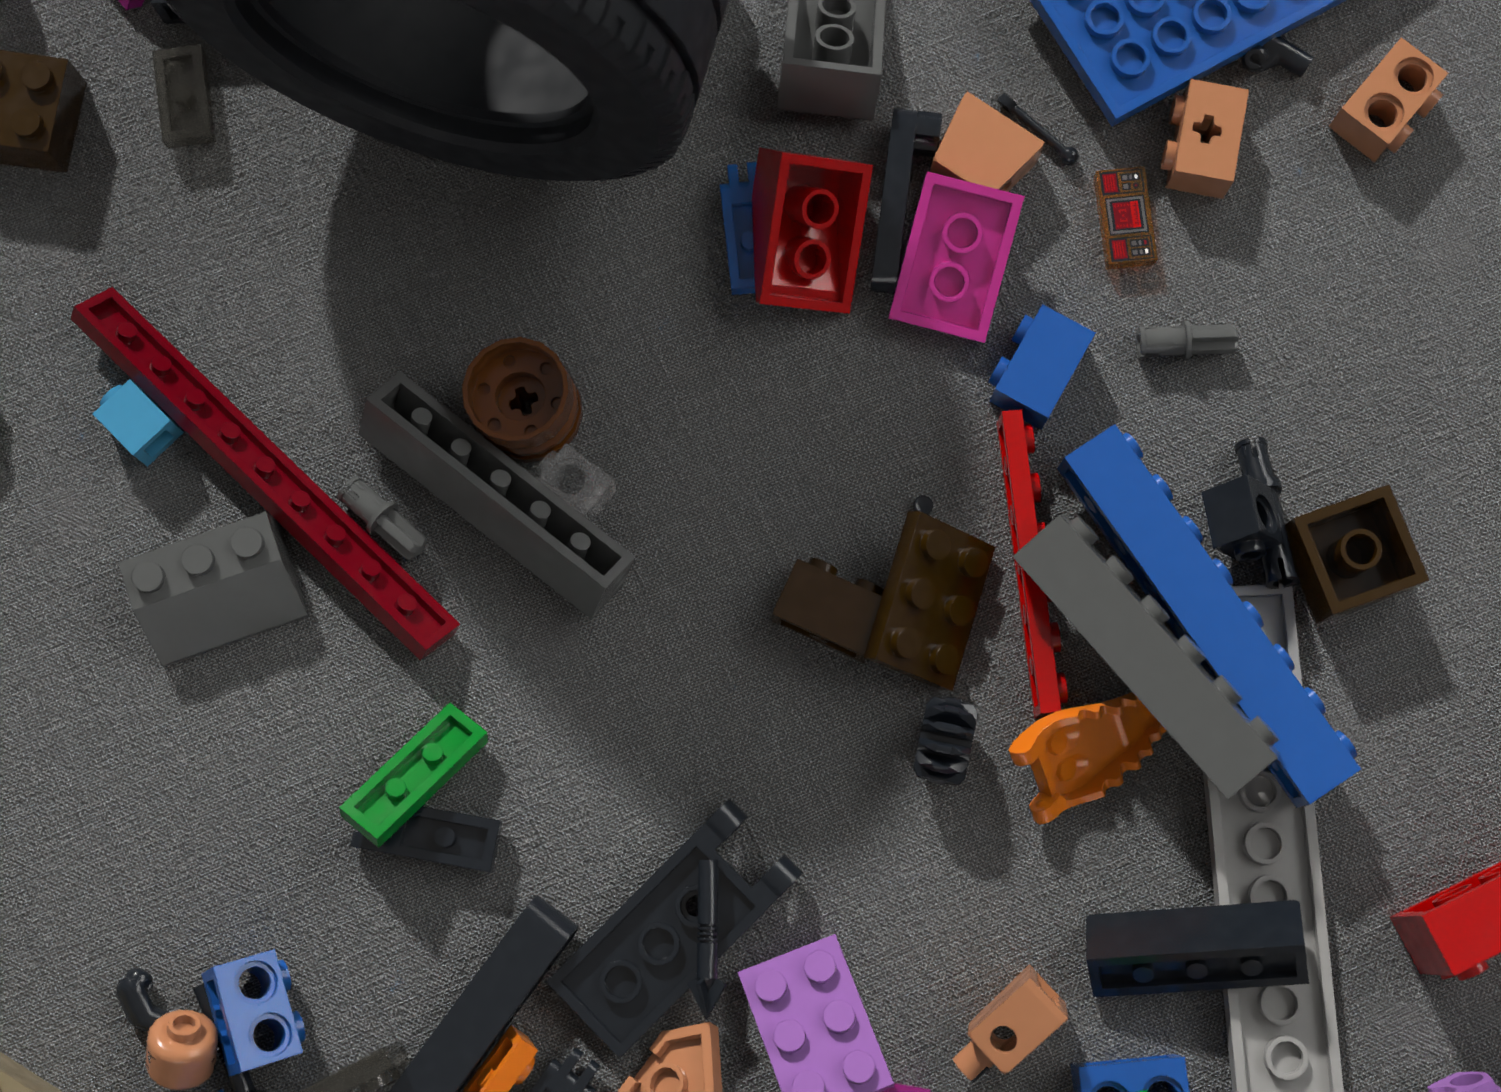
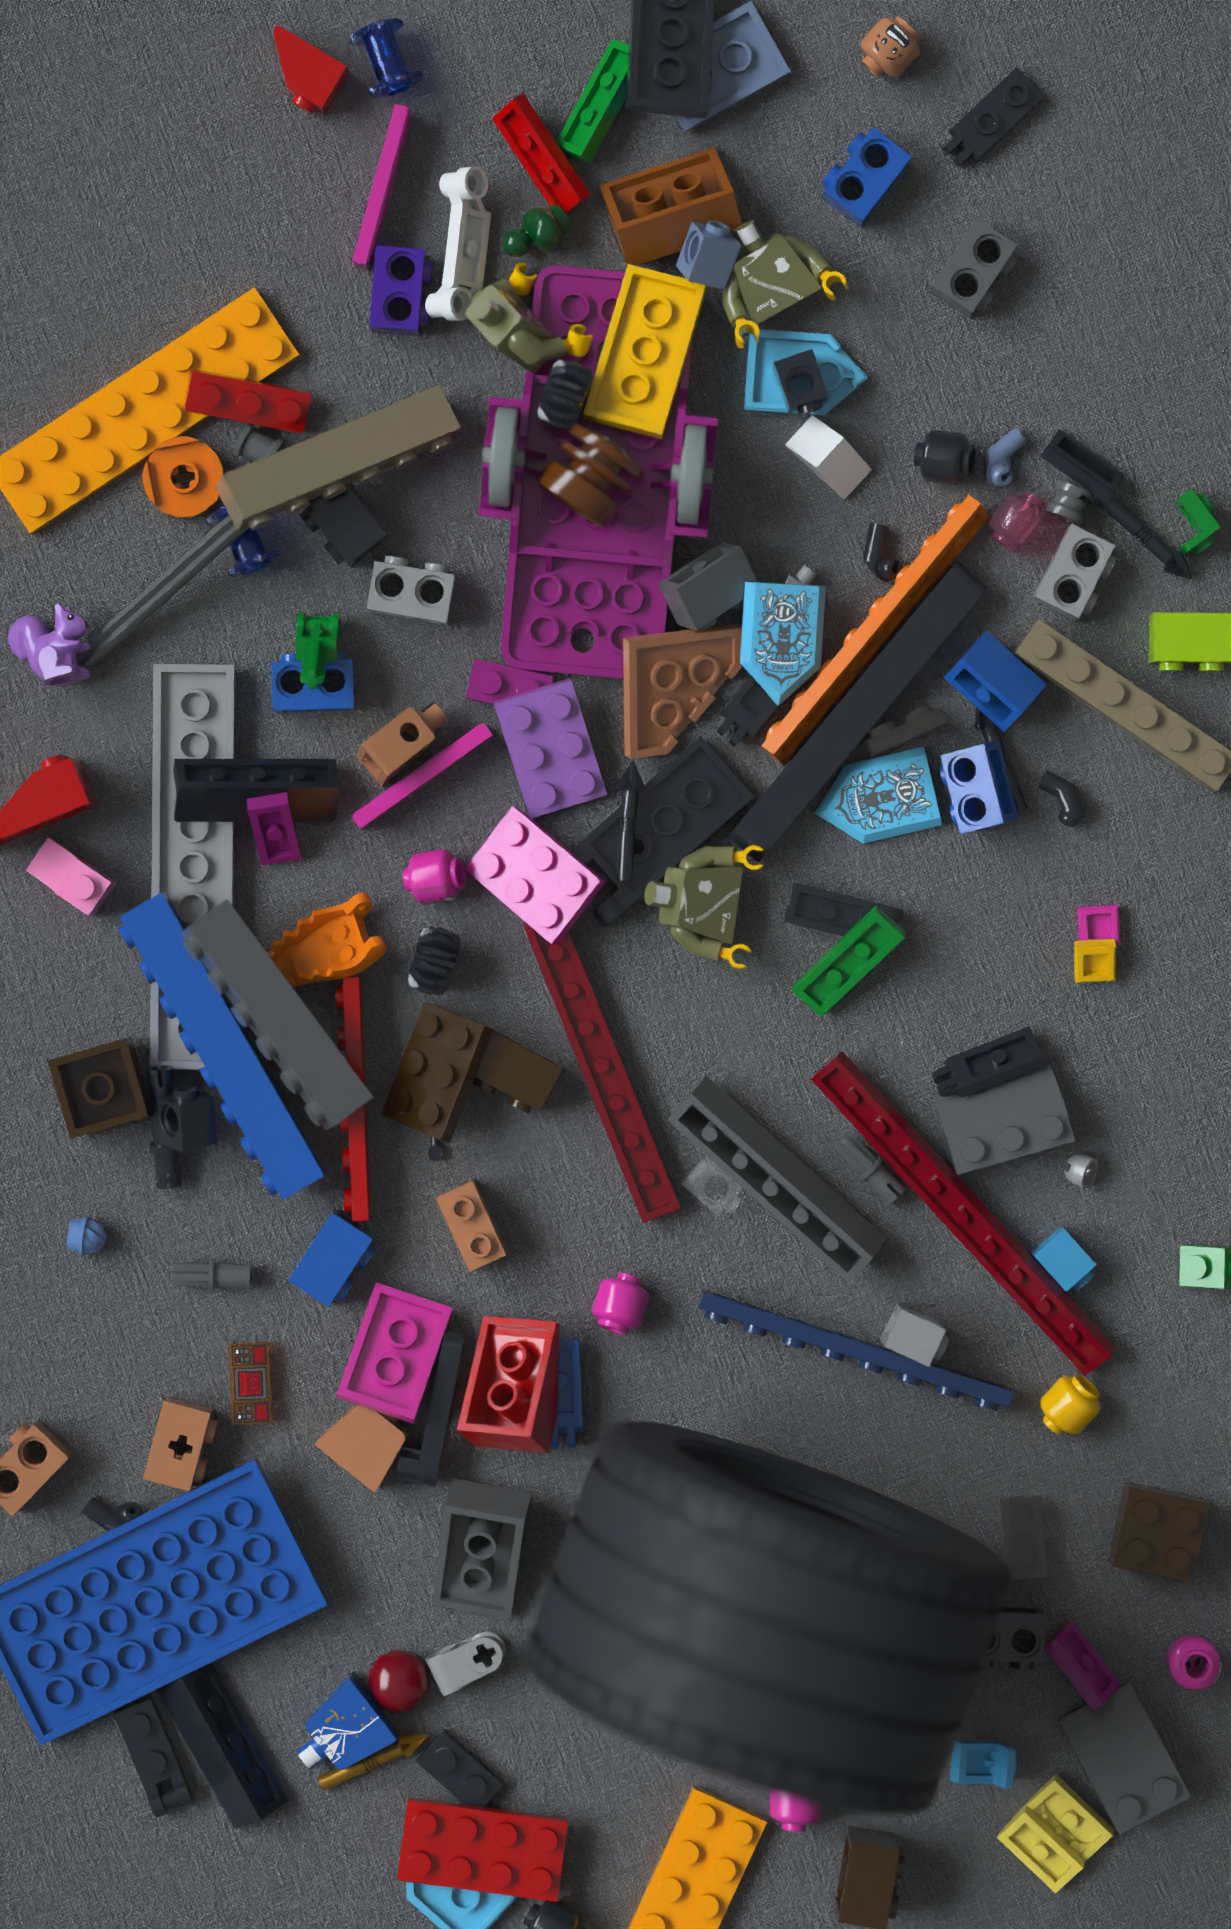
camera: 175 degrees left, 10 degrees up
(101, 841) = (1099, 923): none -> dark pink tile
(103, 796) = (1094, 960): none -> yellow tile
(117, 532) = (1082, 1170): none -> light grey hinge
(127, 250) = (1070, 1404): none -> yellow head
(181, 1050) = (1033, 763): nougat head -> none
(233, 656) = (989, 1064): none -> black hinge
(317, 314) = (914, 1335): none -> light grey brick
(374, 294) = (871, 1356): none -> dark blue plate
(380, 991) = (882, 797): none -> medium azure tile
(507, 377) = (771, 1265): reddish brown wheel -> none
(605, 840) = (702, 901): none -> olive torso
(682, 334) = (620, 1304): none -> dark pink head
(725, 627) = (605, 1075): none -> dark red plate
(823, 859) = (534, 875): none -> plate
(872, 416) = (471, 1225): none -> nougat brick
(953, 850) = (434, 876): none -> dark pink head
(979, 981) = (422, 776): none -> dark pink tile
(1068, 155) = (292, 1440): black hinge -> none
(1167, 899) = (274, 828): none -> magenta plate
(1348, 376) = (85, 1236): none -> medium blue plate
(1416, 819) = (71, 877): none -> bright pink arch

